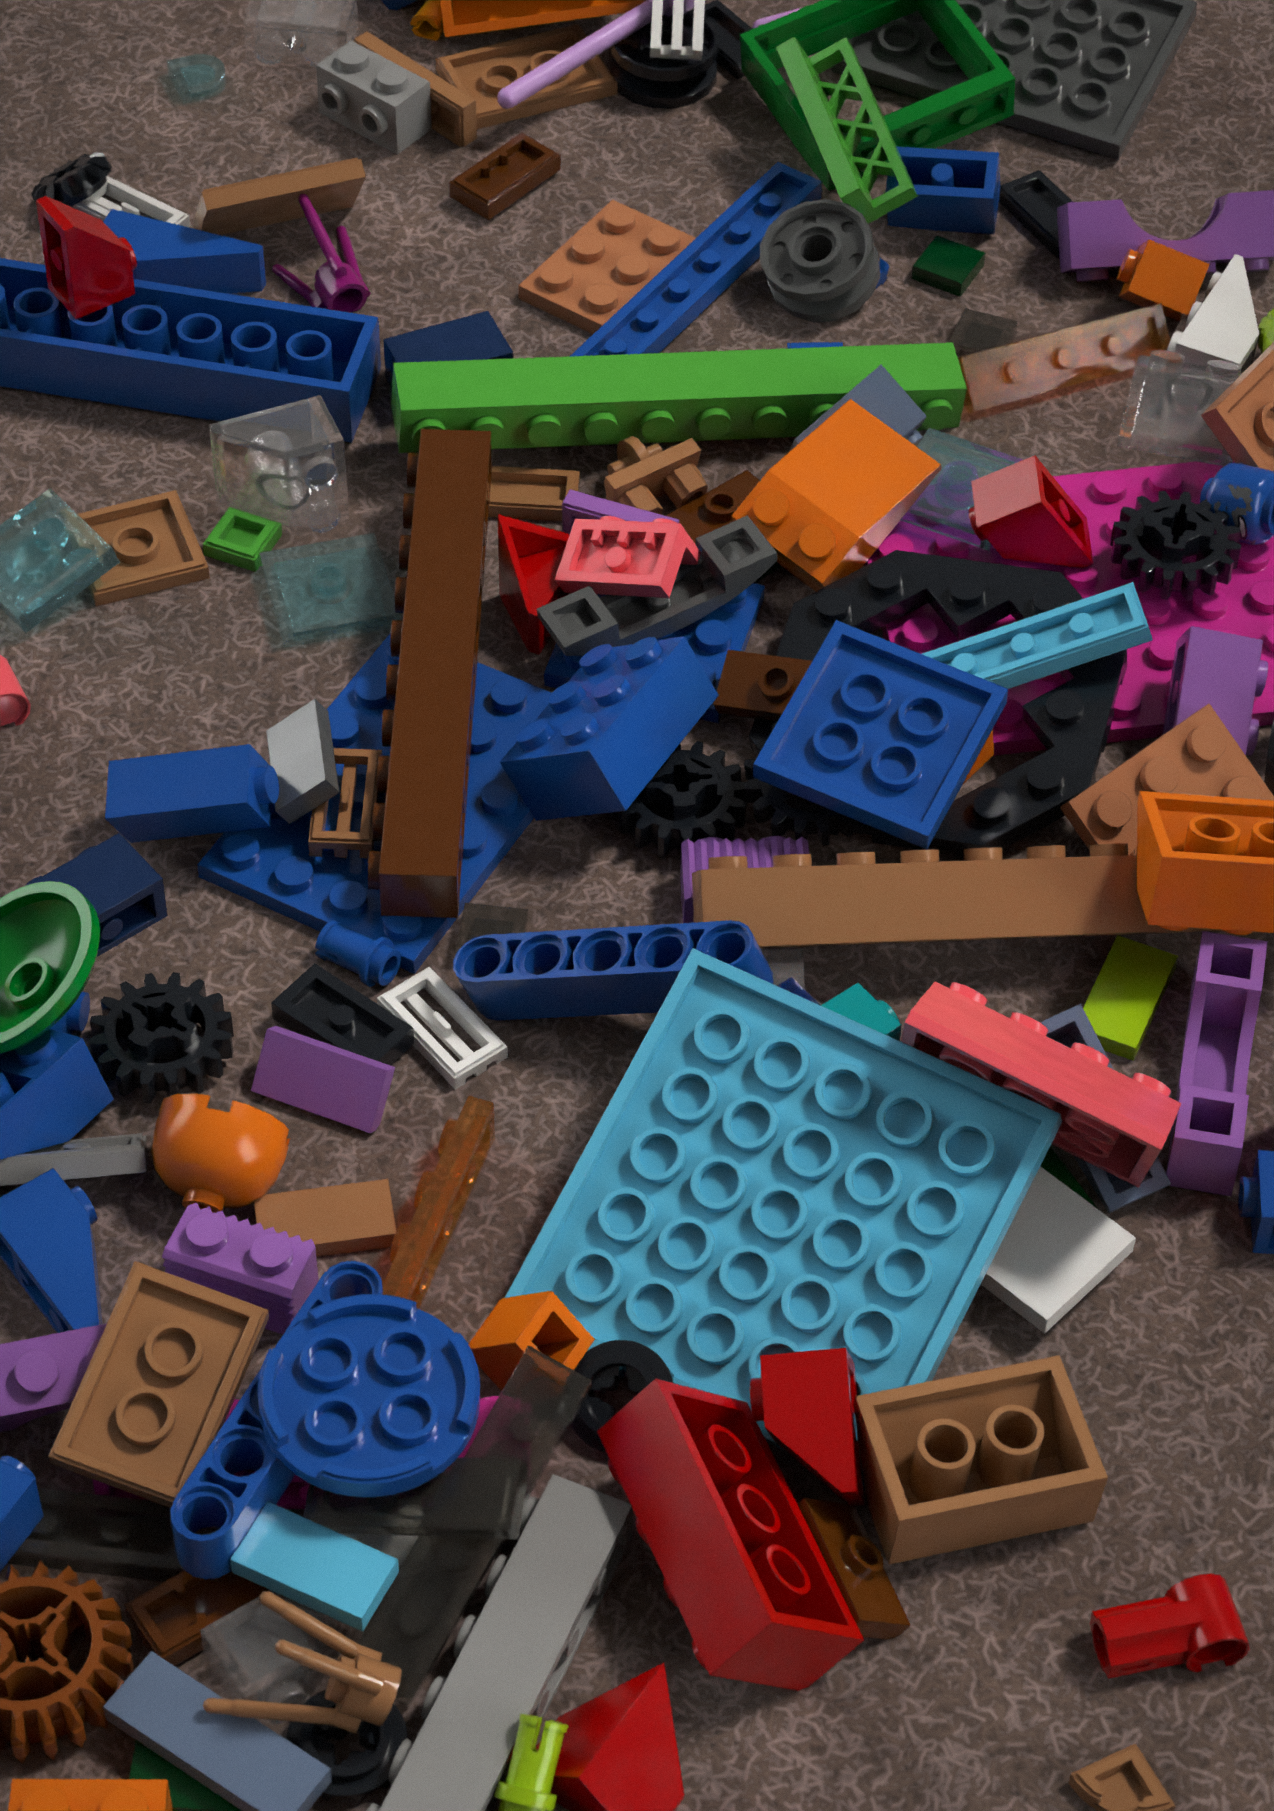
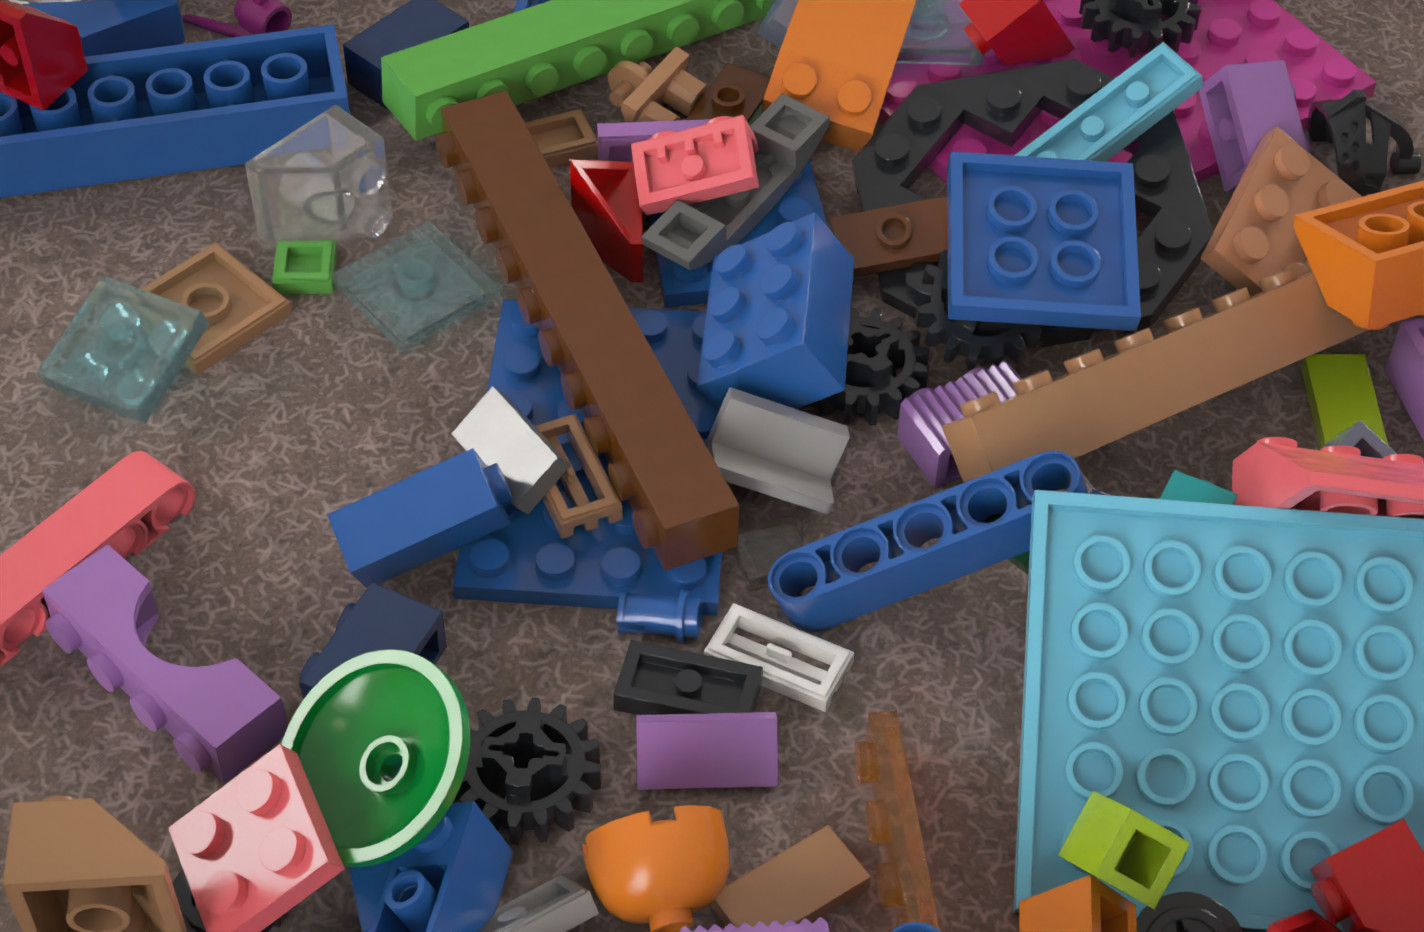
camera: 25 degrees left, 0 degrees up
(540, 846) = (777, 449): none -> light grey panel
(594, 1282) = (1124, 849): none -> lime brick

